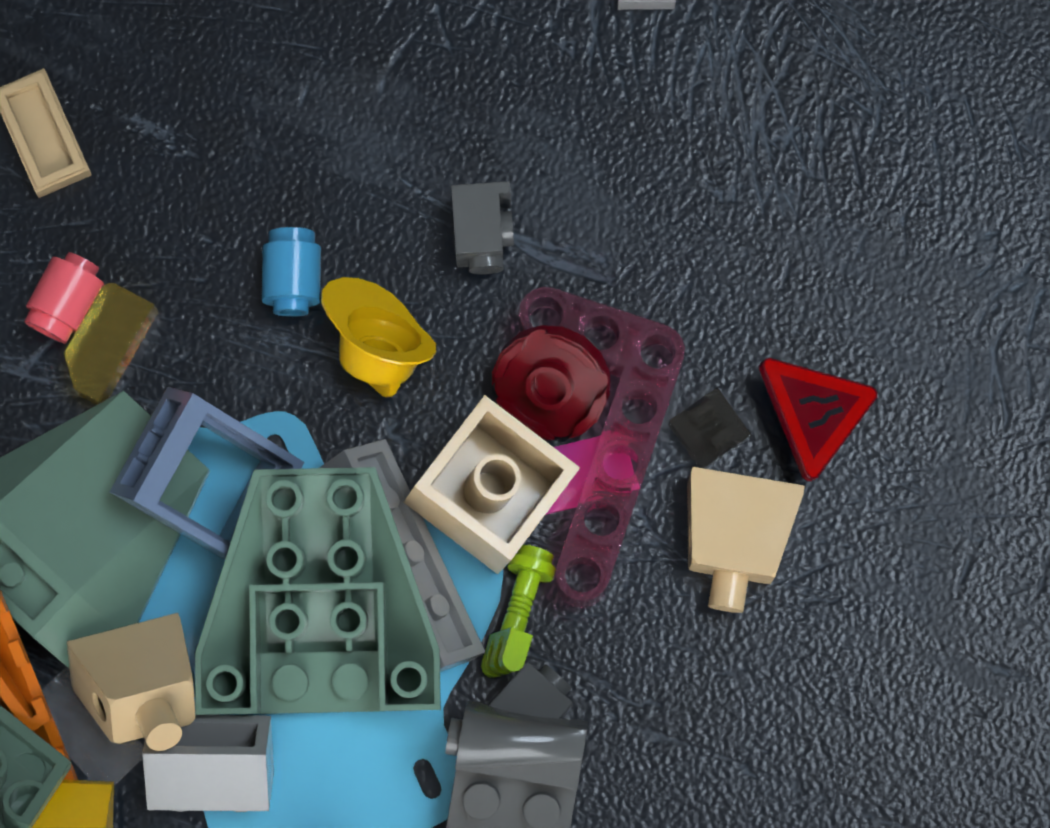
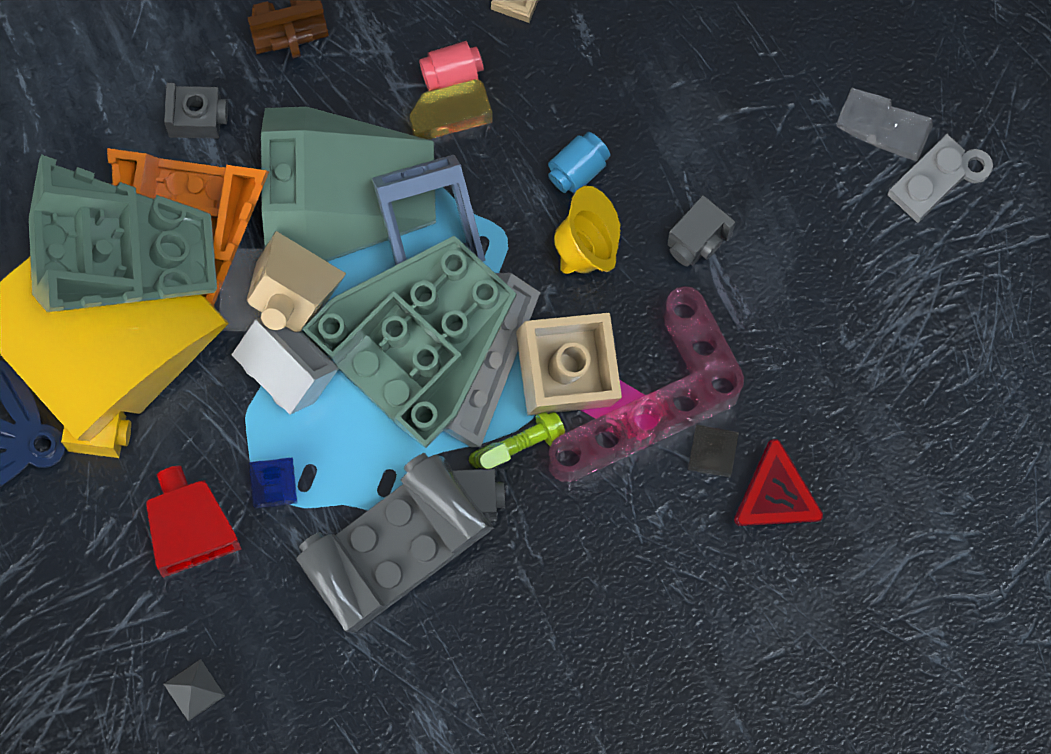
camera: 45 degrees right, 5 degrees down
(552, 381) = (653, 344): dark red tile -> none
(738, 531) = (673, 514): tan torso -> none

